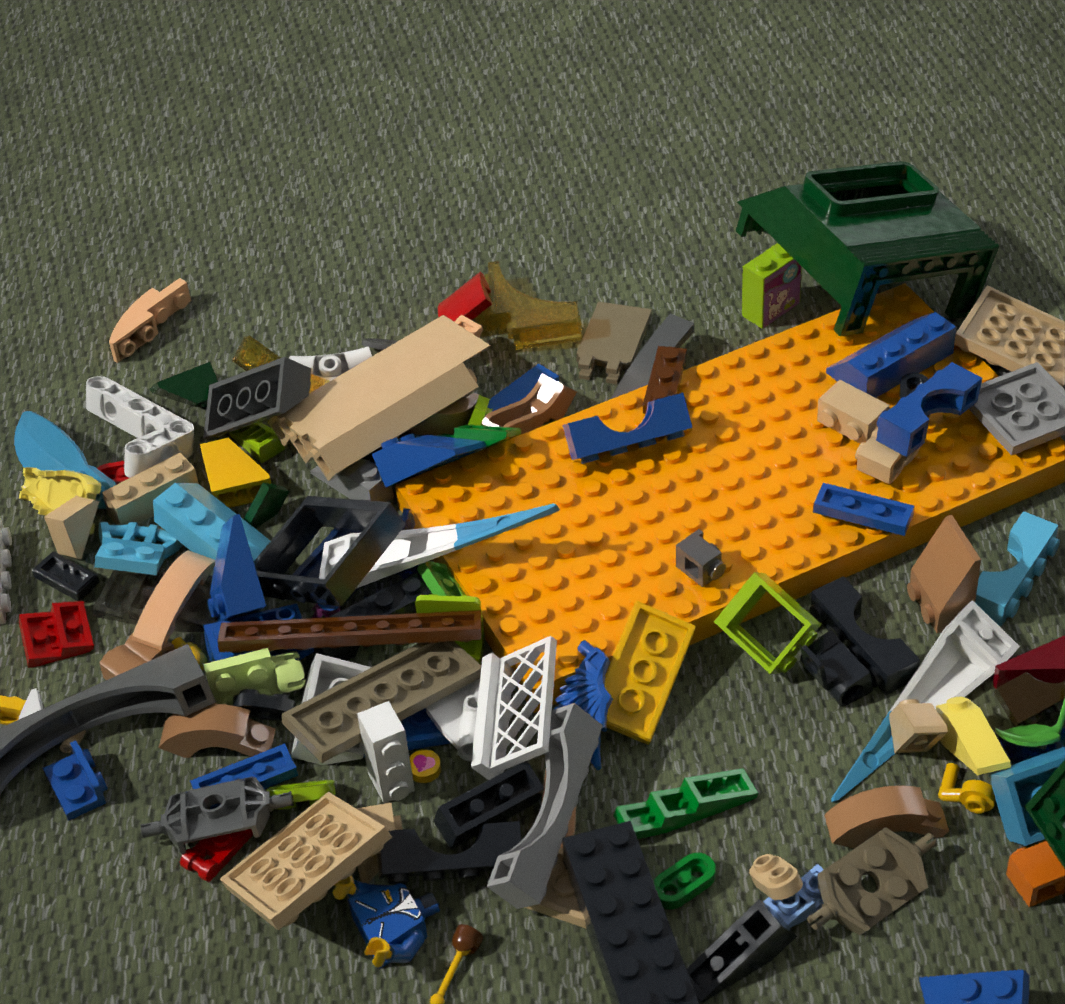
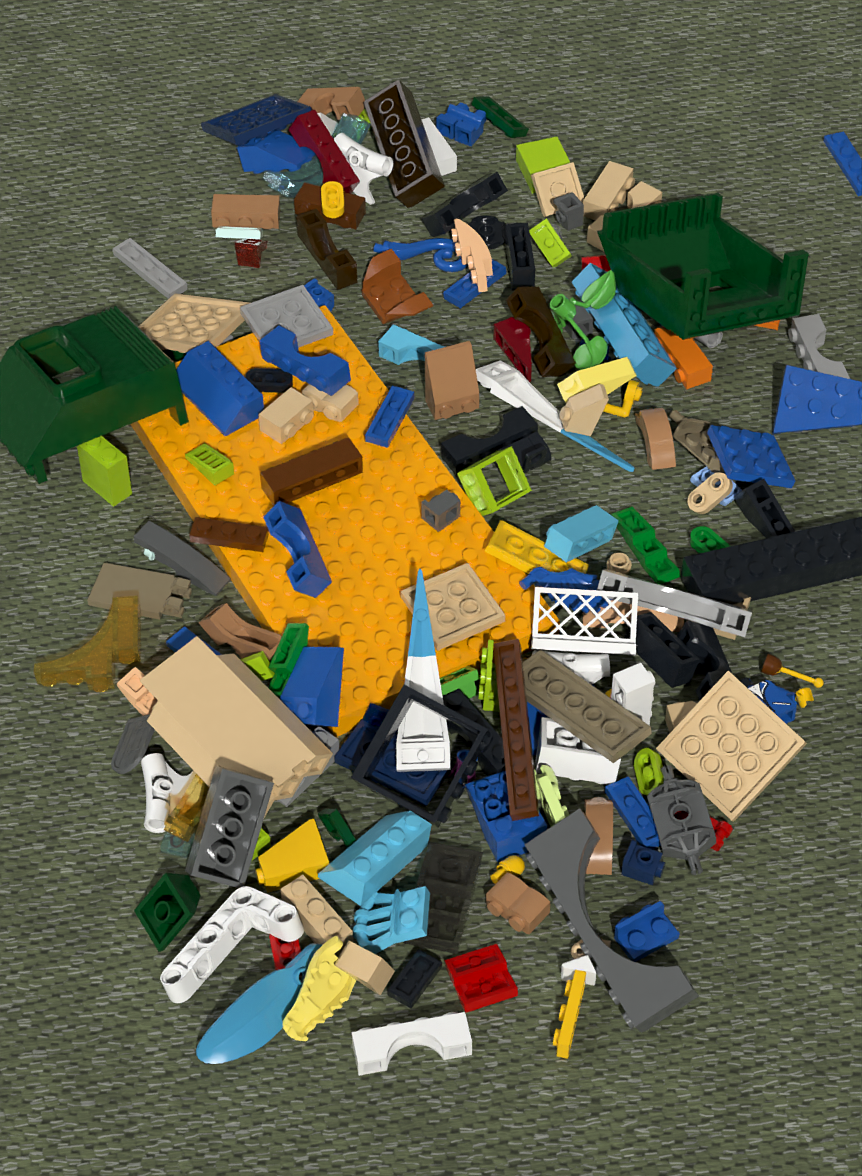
camera: 95 degrees left, 5 degrees up
(141, 319) = (68, 965): light nougat slope -> none
(168, 776) = (642, 863): none -> dark blue brick
(170, 597) = (463, 865): light nougat slope -> none
(235, 582) = (453, 812): blue slope -> none
(263, 706) = (572, 796): black plate -> none
(468, 300) = (87, 690): red slope -> none
(543, 573) = (457, 606): none -> tan plate
(648, 767) = (619, 559): none -> tan plate
(688, 719) = (580, 533): none -> medium azure brick
(754, 435) = (312, 472): none -> reddish brown brick
(764, 366) = (214, 475): none -> lime slope
(847, 929) = (750, 456): none -> blue plate

